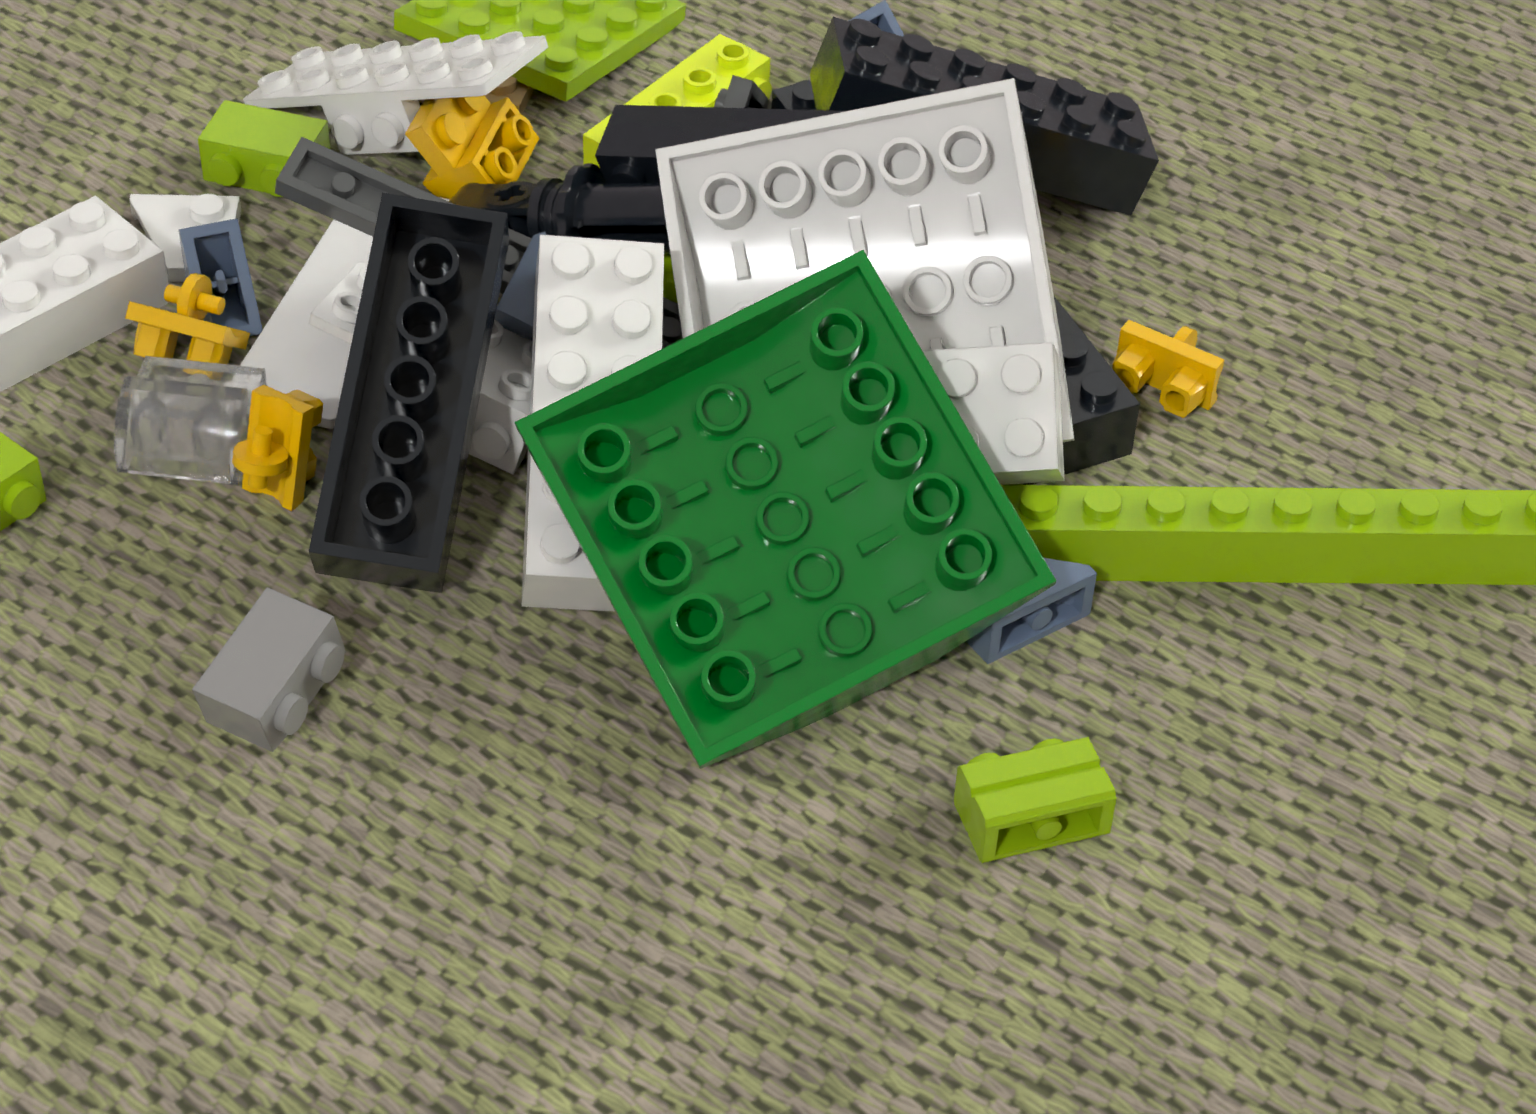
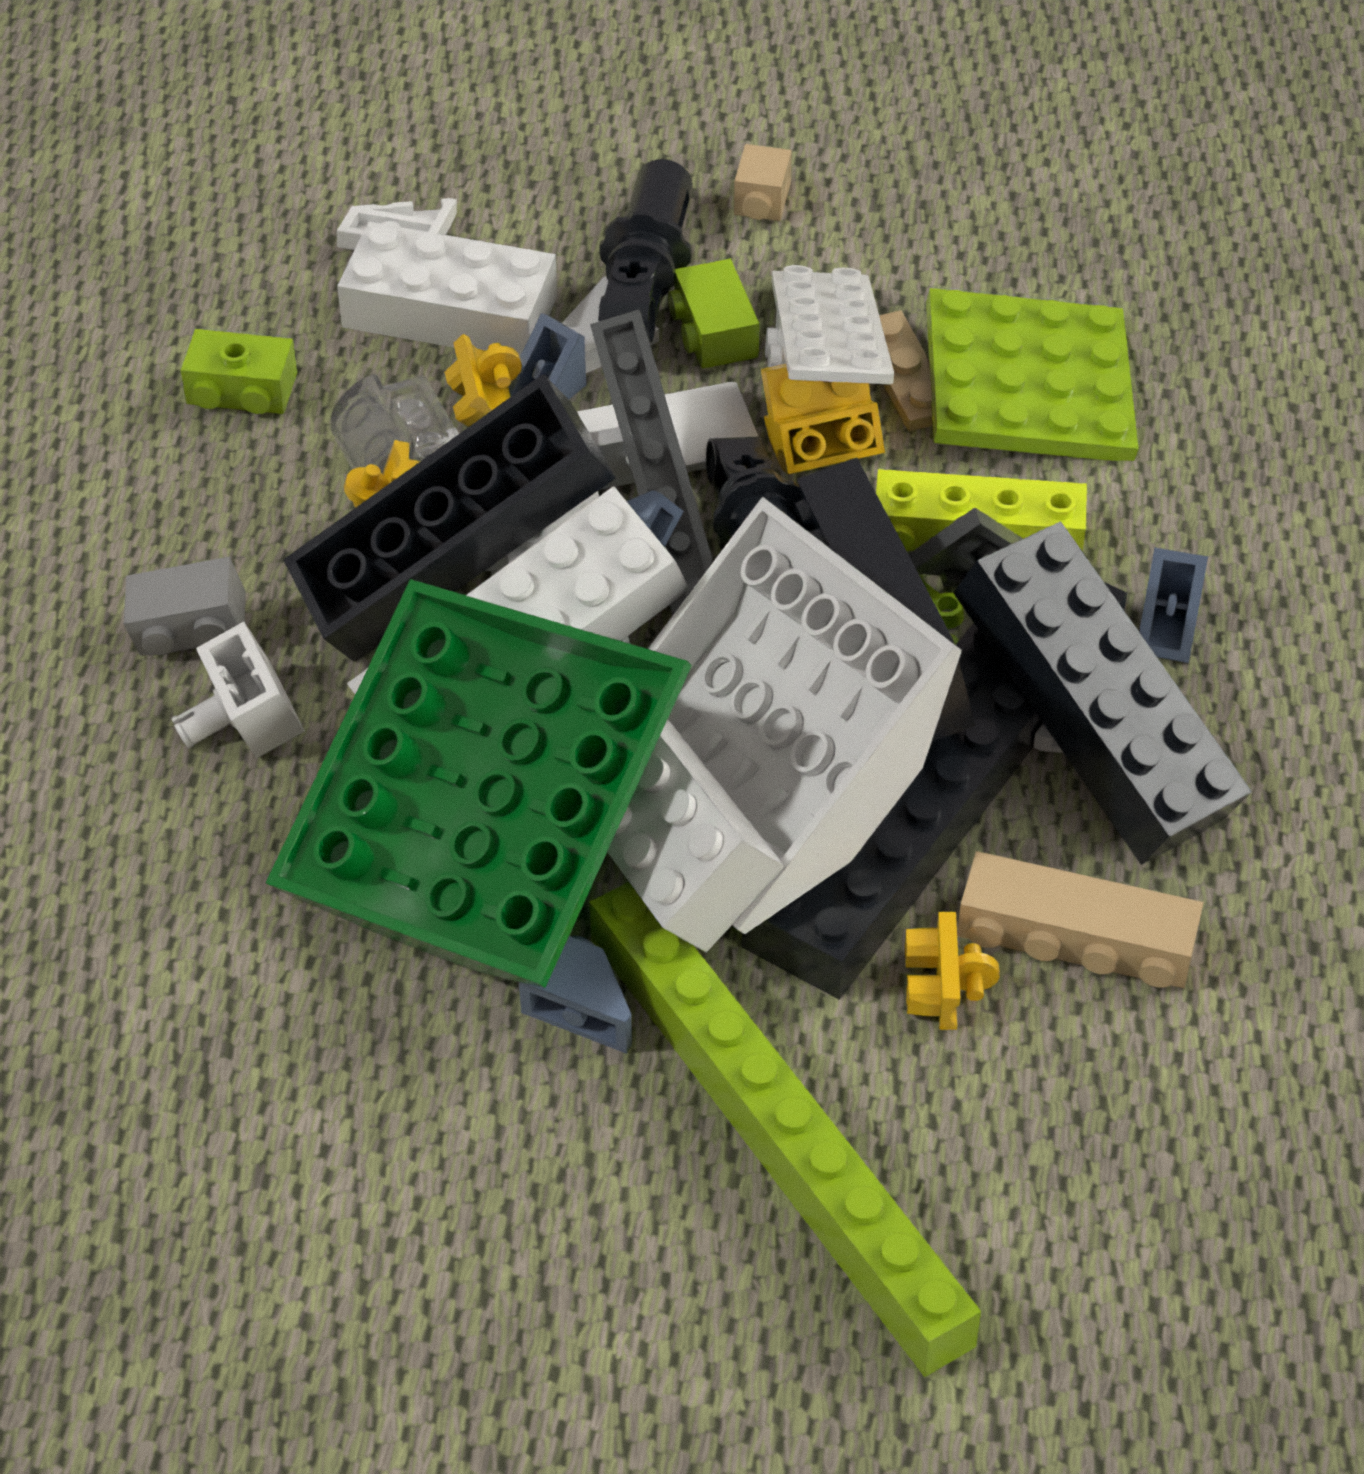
camera: 60 degrees right, 5 degrees up
(131, 49) = (762, 182): none -> tan brick
(154, 147) = (647, 243): none -> black piece
(438, 670) = (244, 695): none -> white brick
(1034, 798) = (376, 1096): lime brick -> none
(1173, 266) = (1079, 920): none -> tan brick

